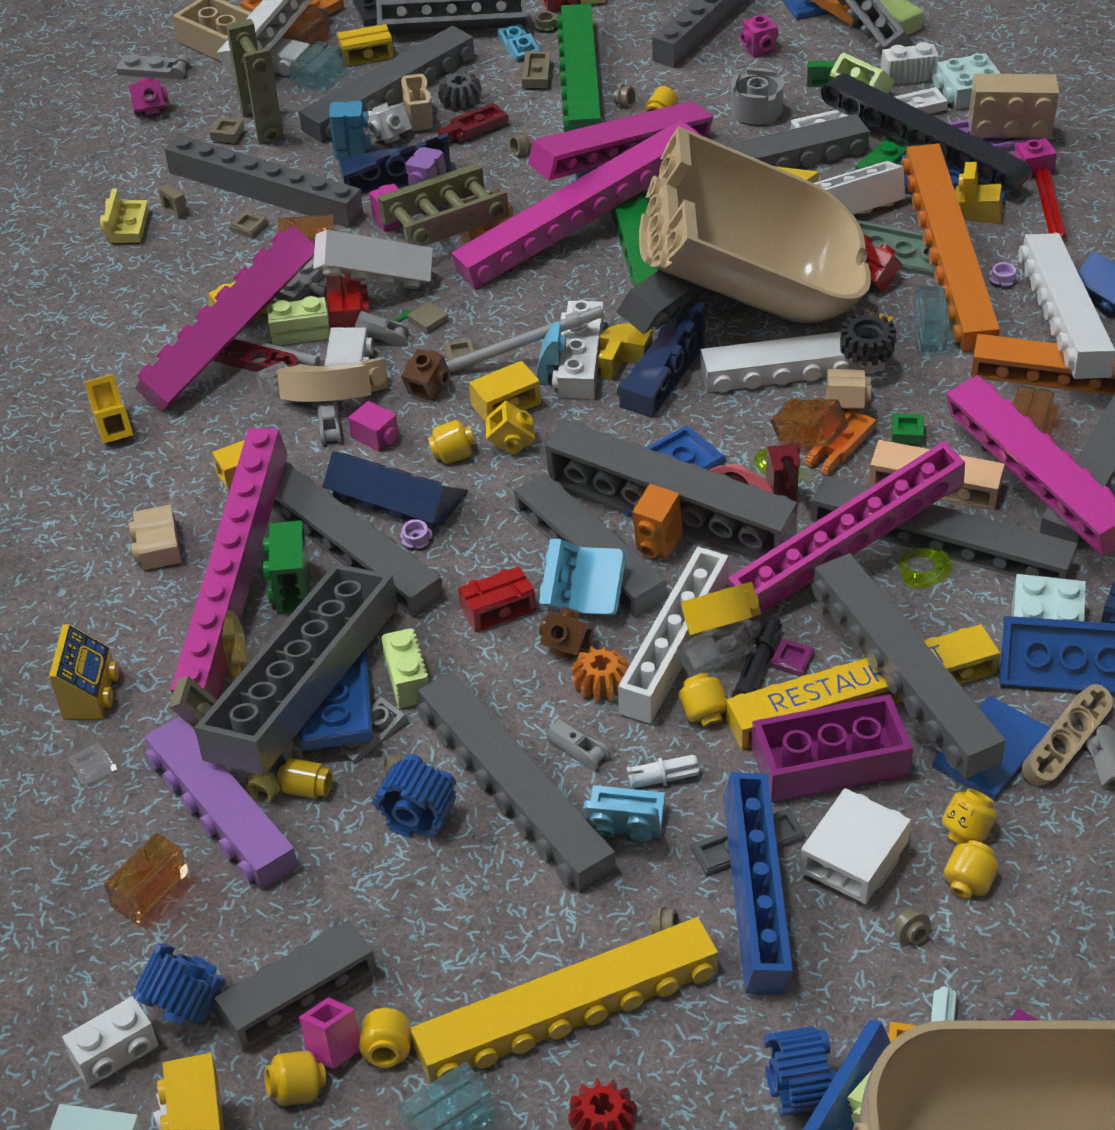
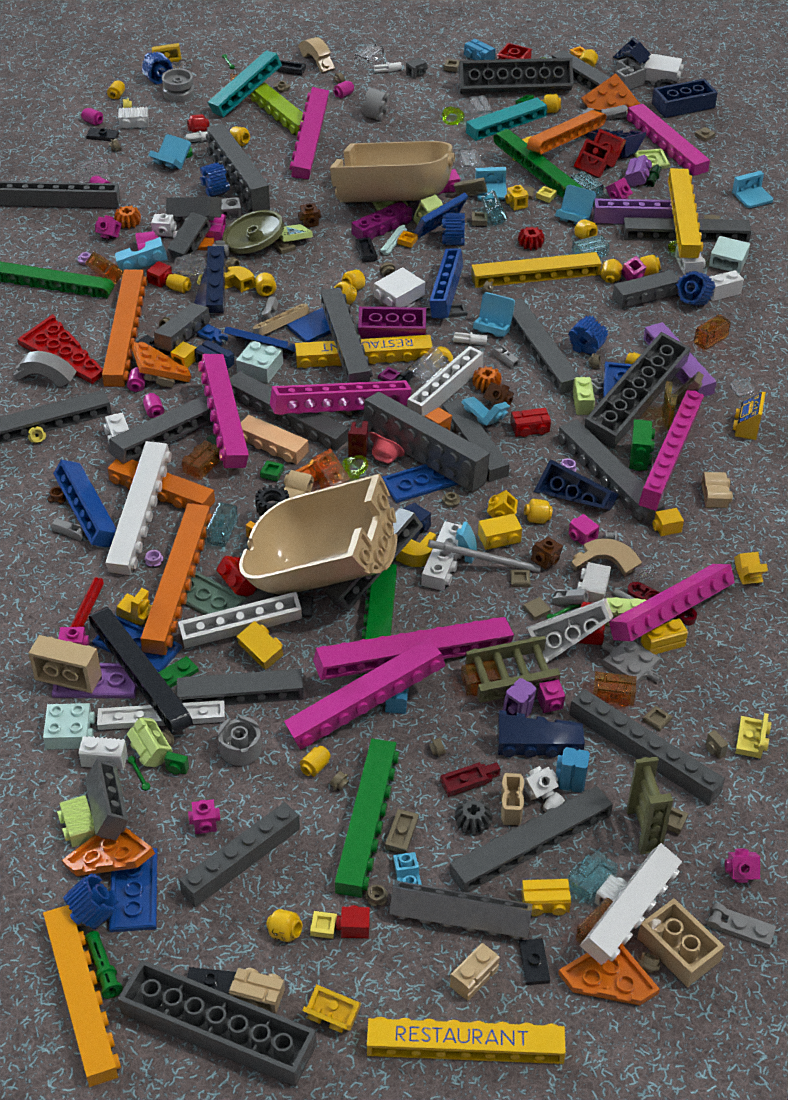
camera: 170 degrees left, 0 degrees up
(720, 608) = (426, 364): yellow brick -> none
(990, 985) = (366, 249): none -> black plate

